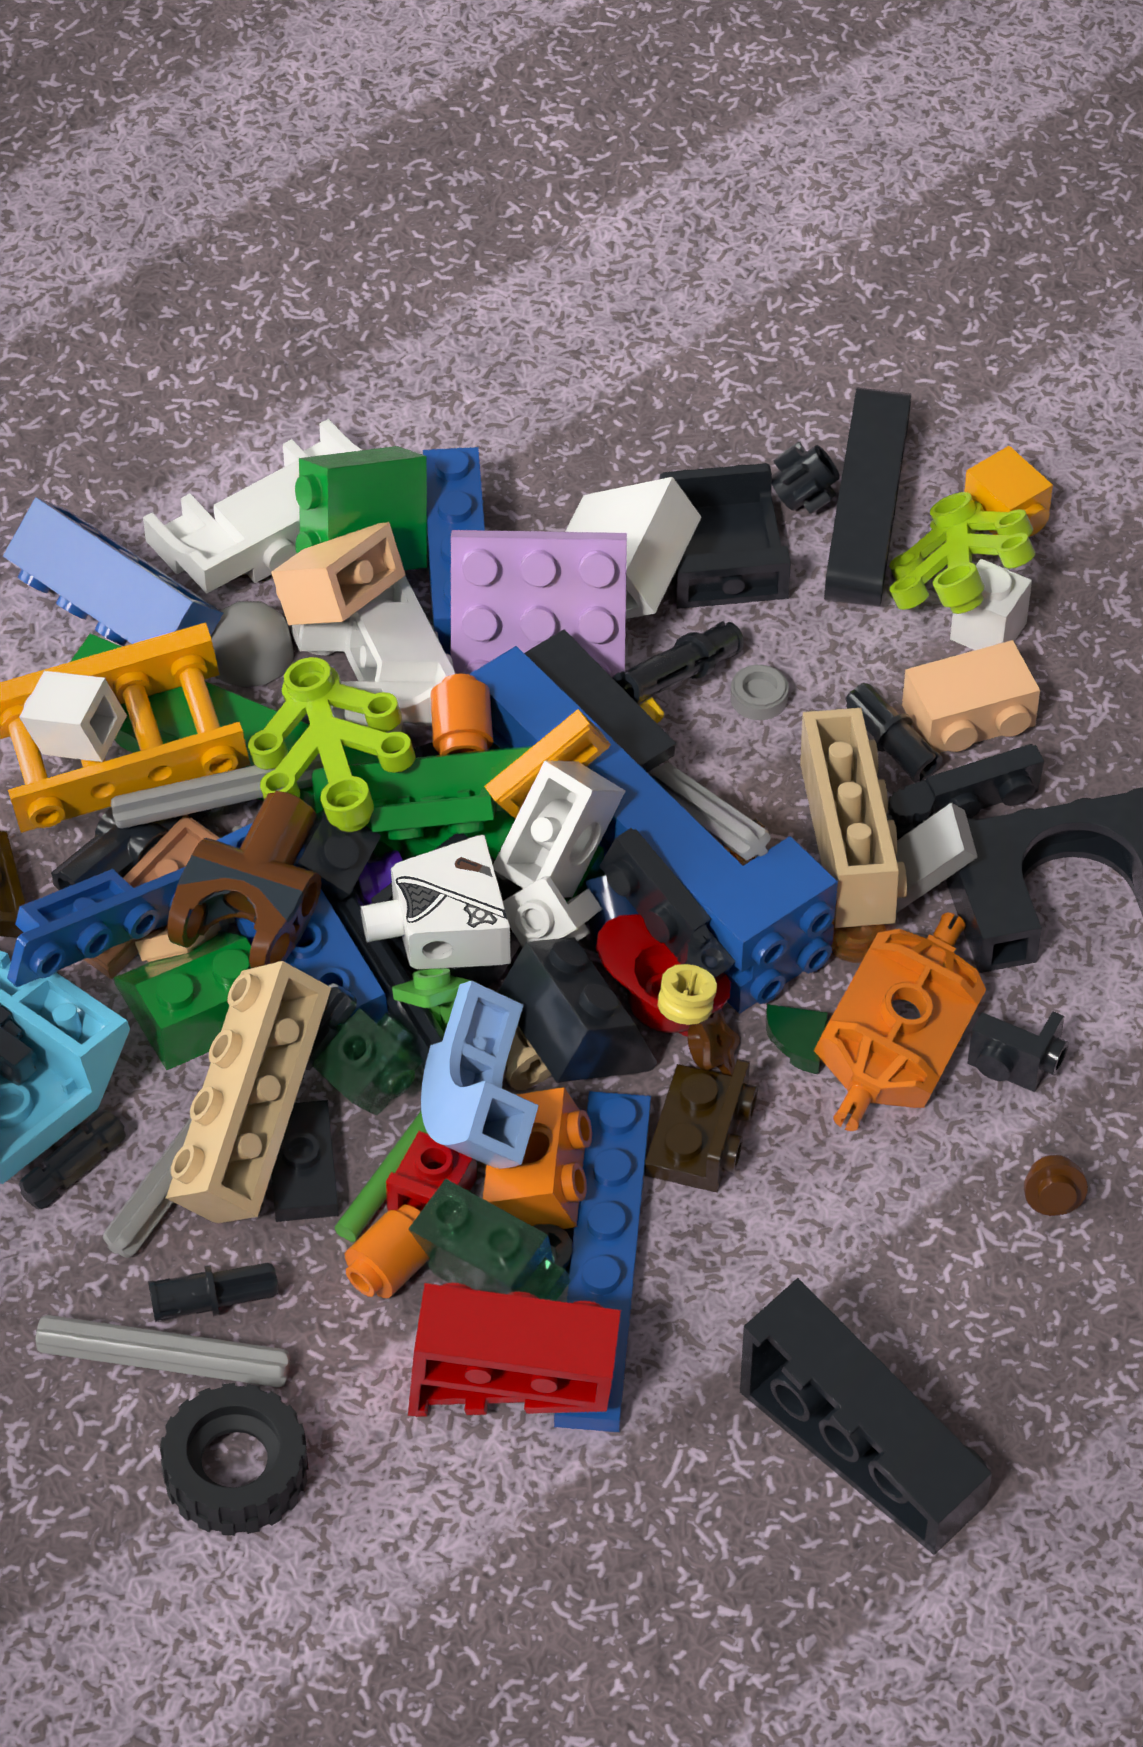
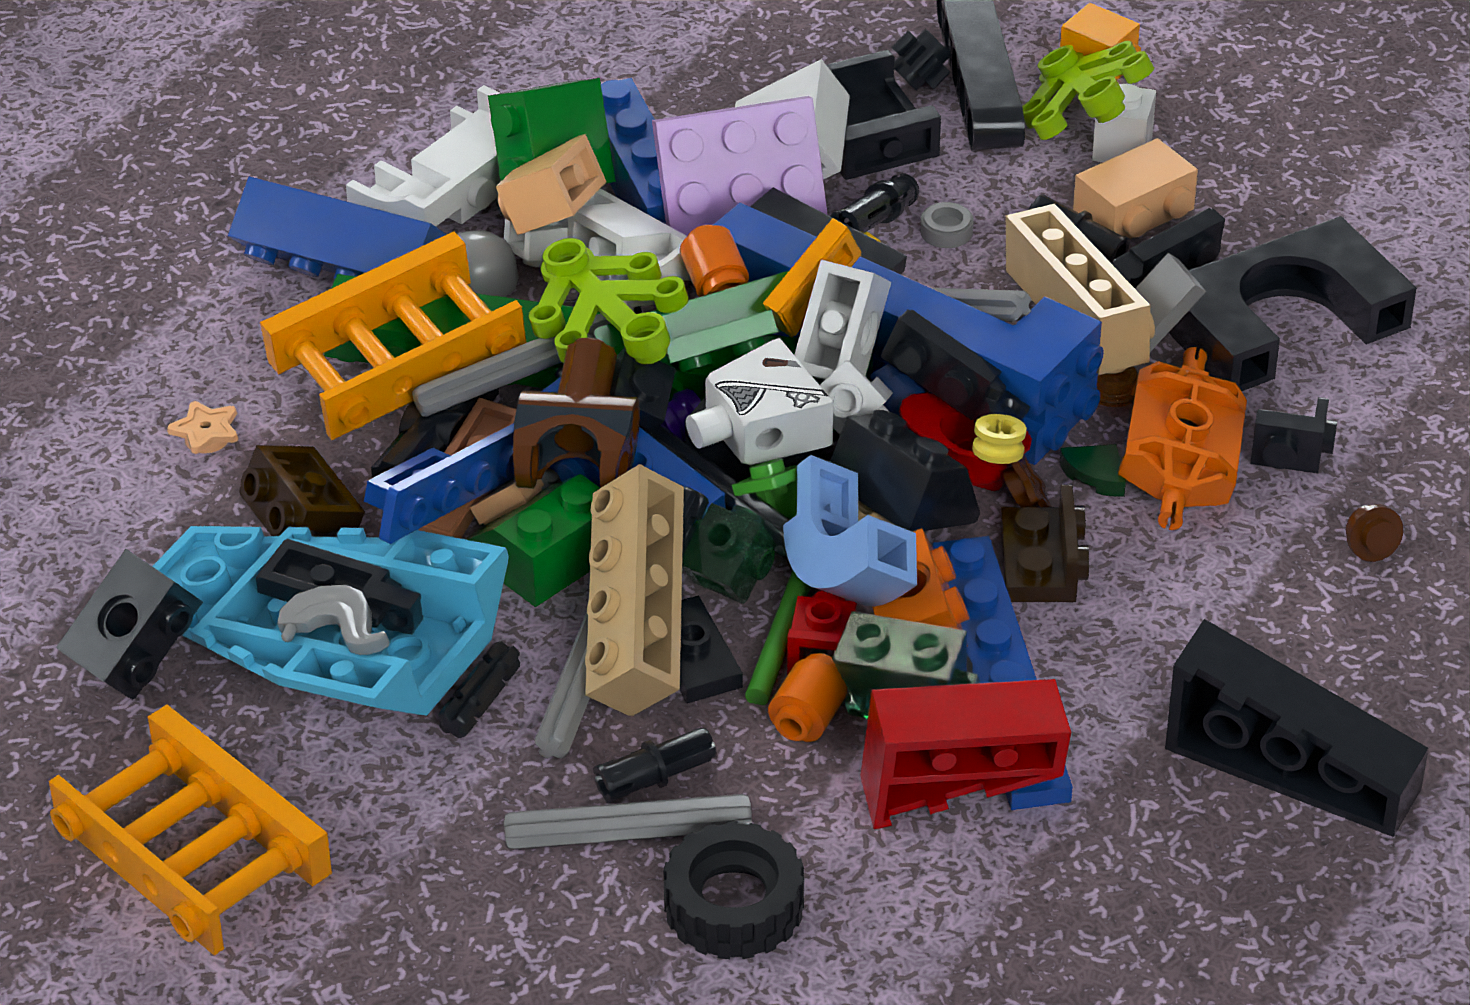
camera: 15 degrees left, 10 degrees down
(73, 716) = (362, 320): white brick -> none

